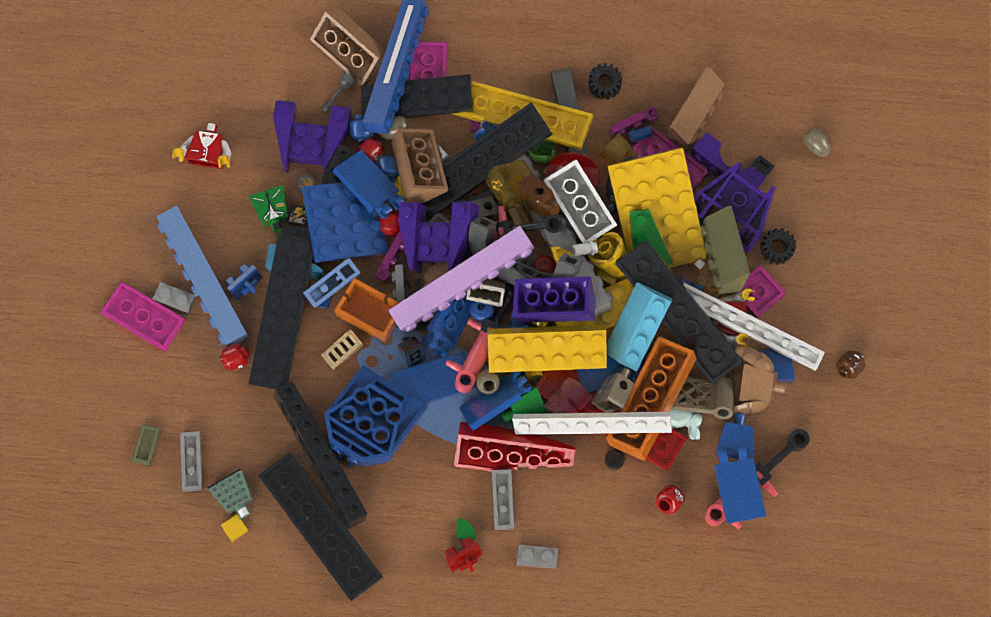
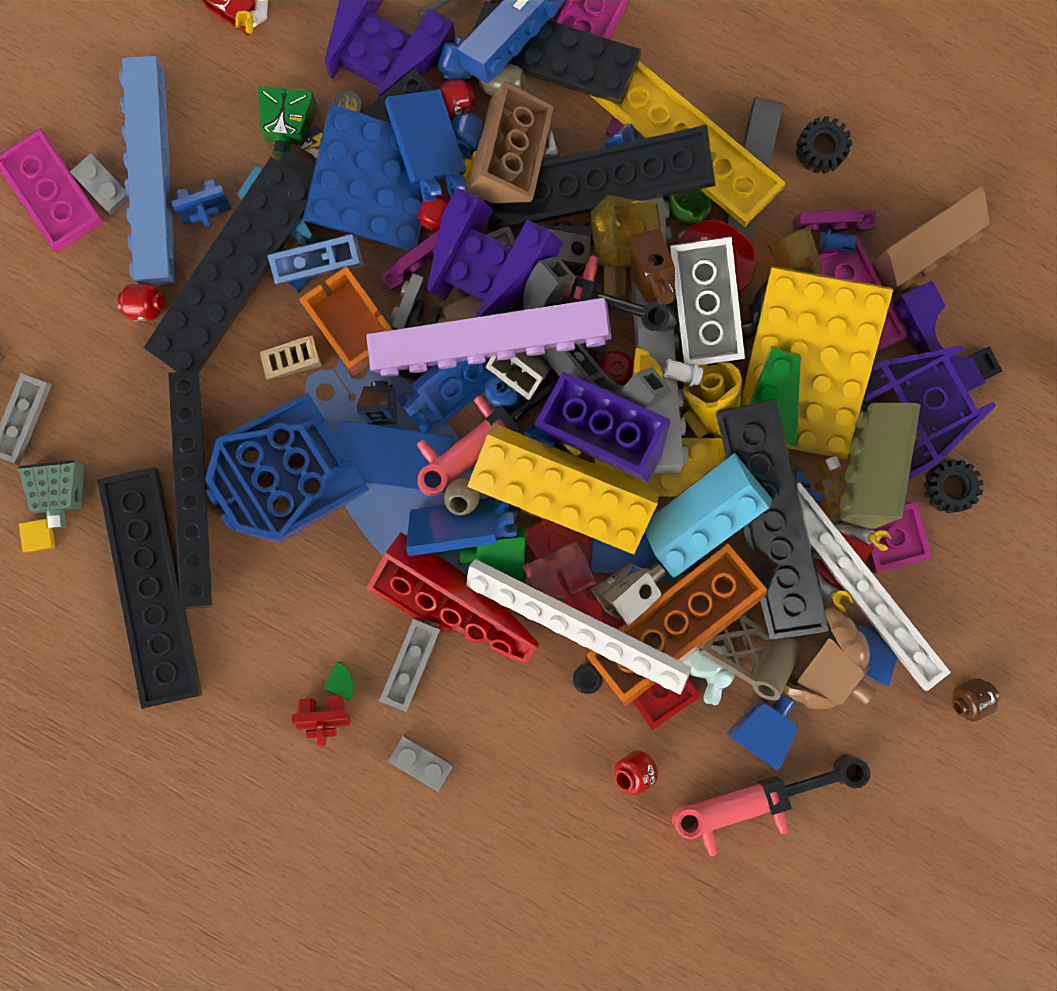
camera: 20 degrees right, 10 degrees up
(739, 487) = (739, 804): blue tile -> none

